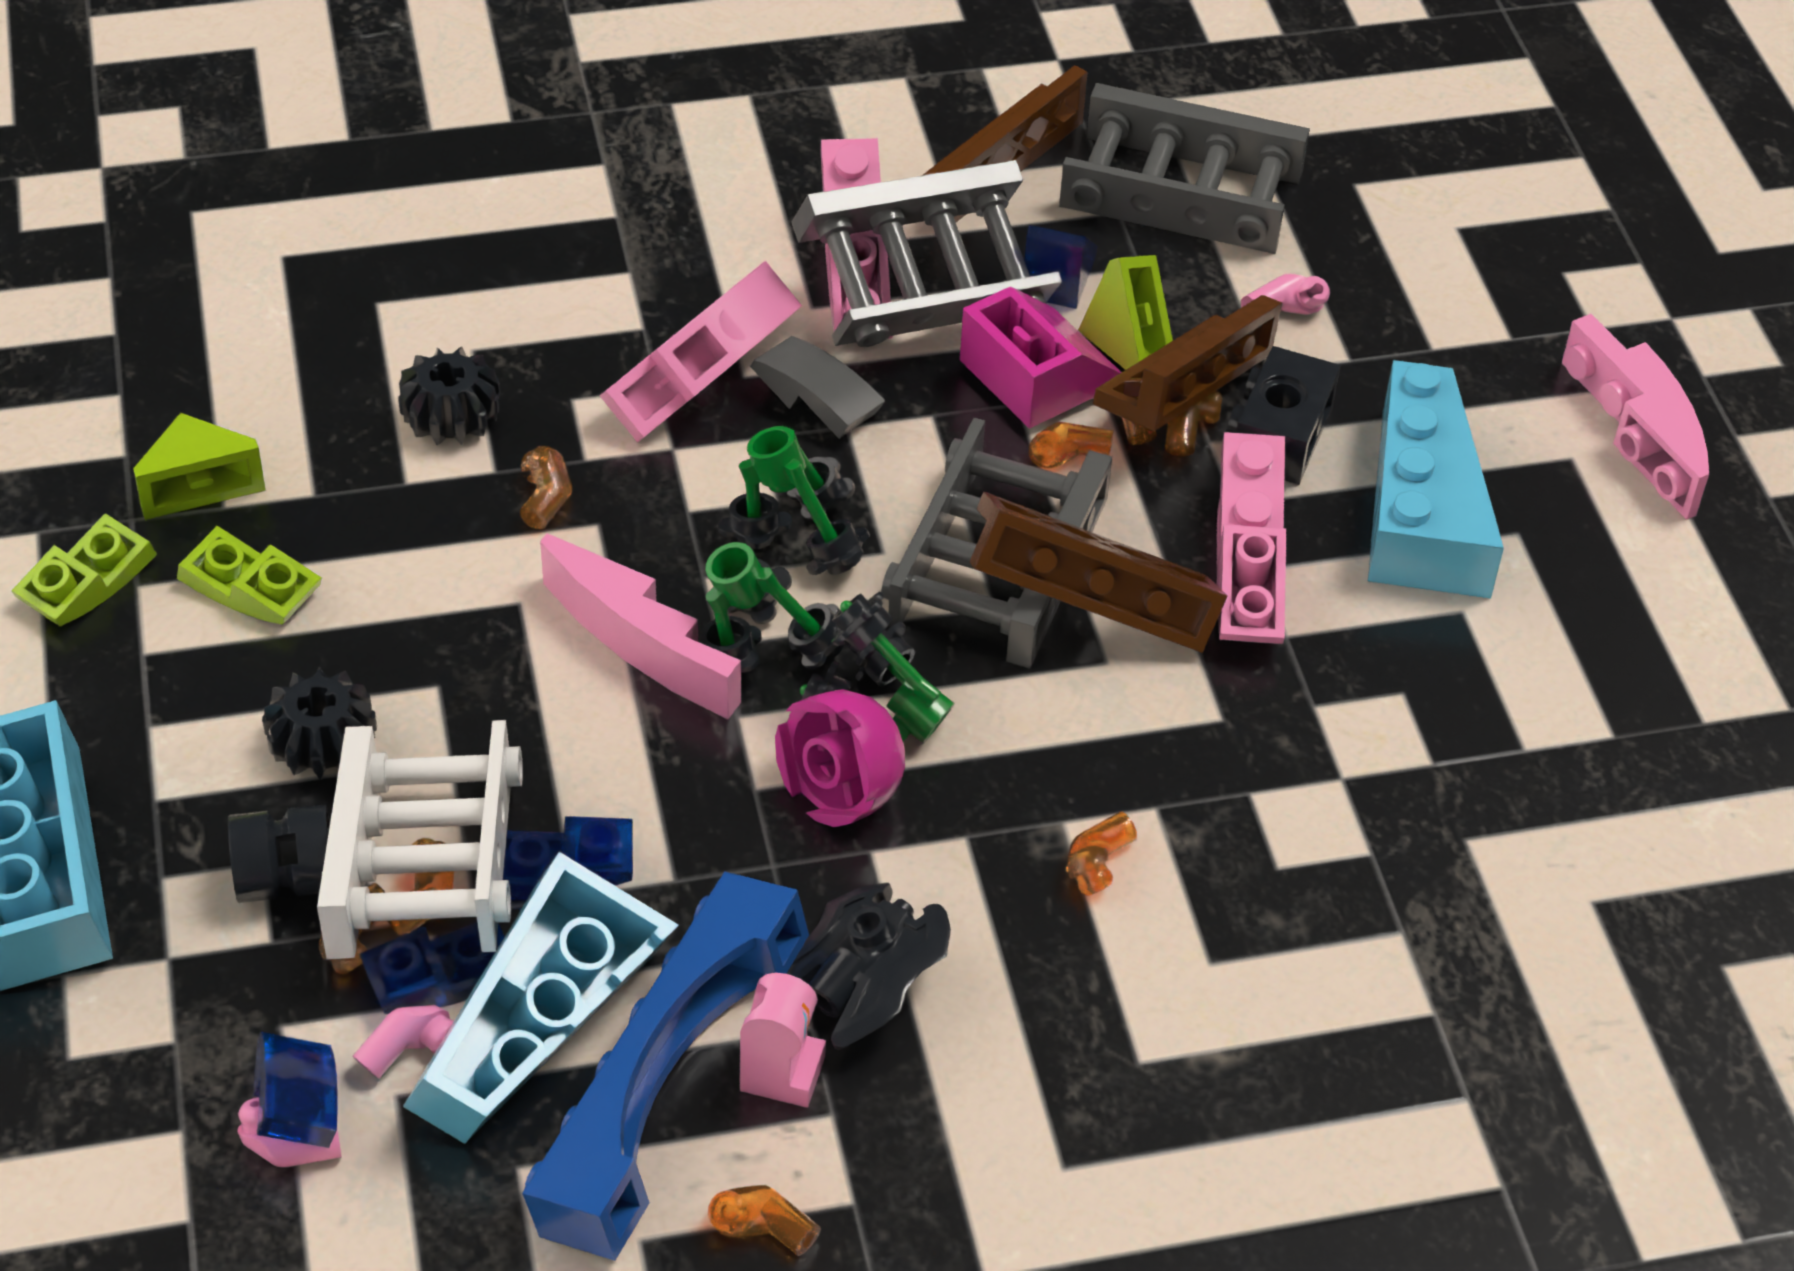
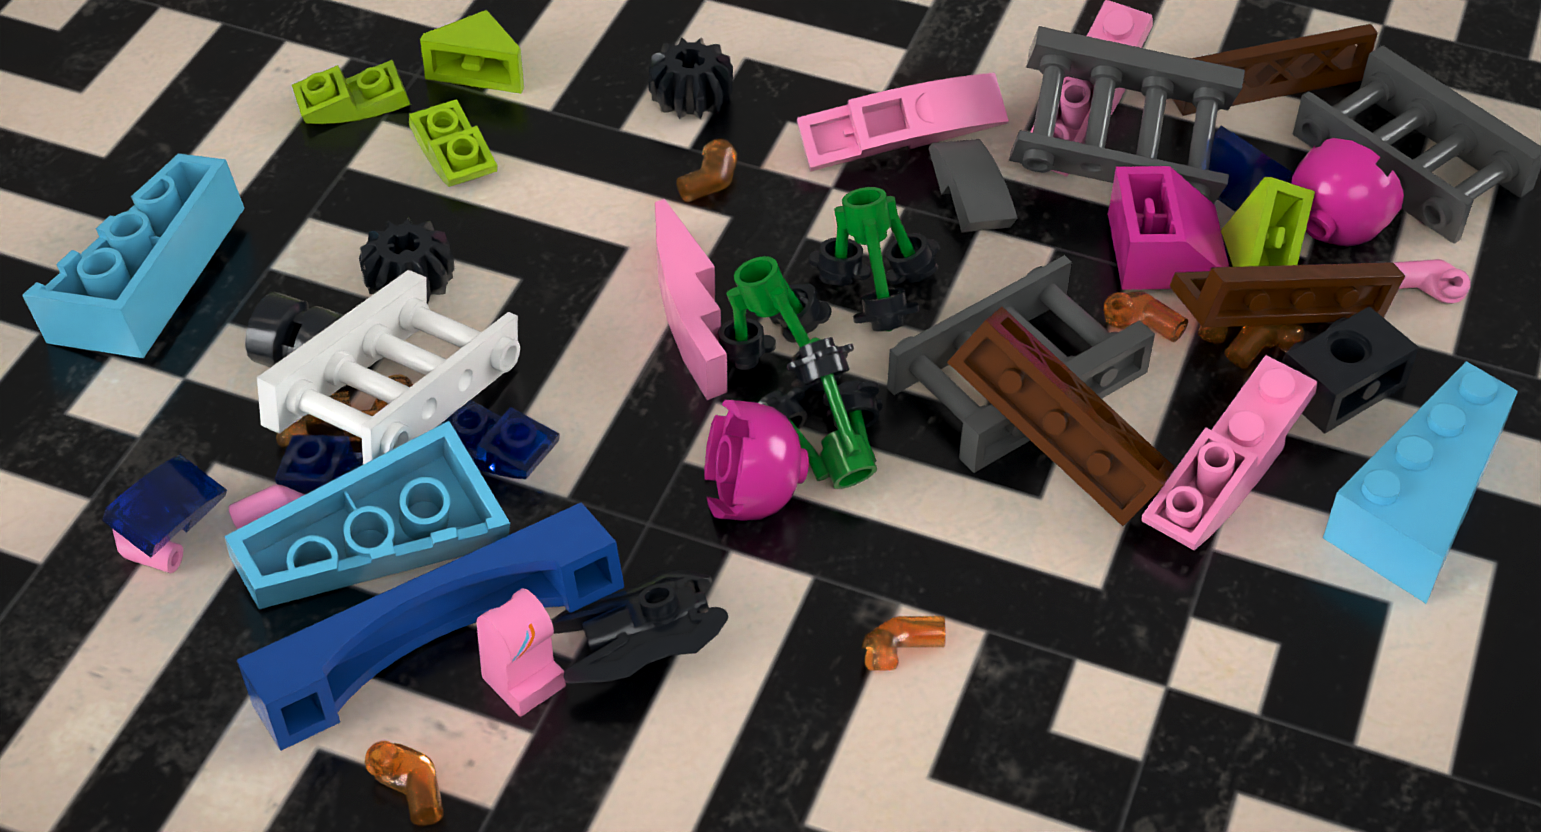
camera: 35 degrees right, 0 degrees up
(1180, 234) = (1351, 192): none -> dark pink cylinder

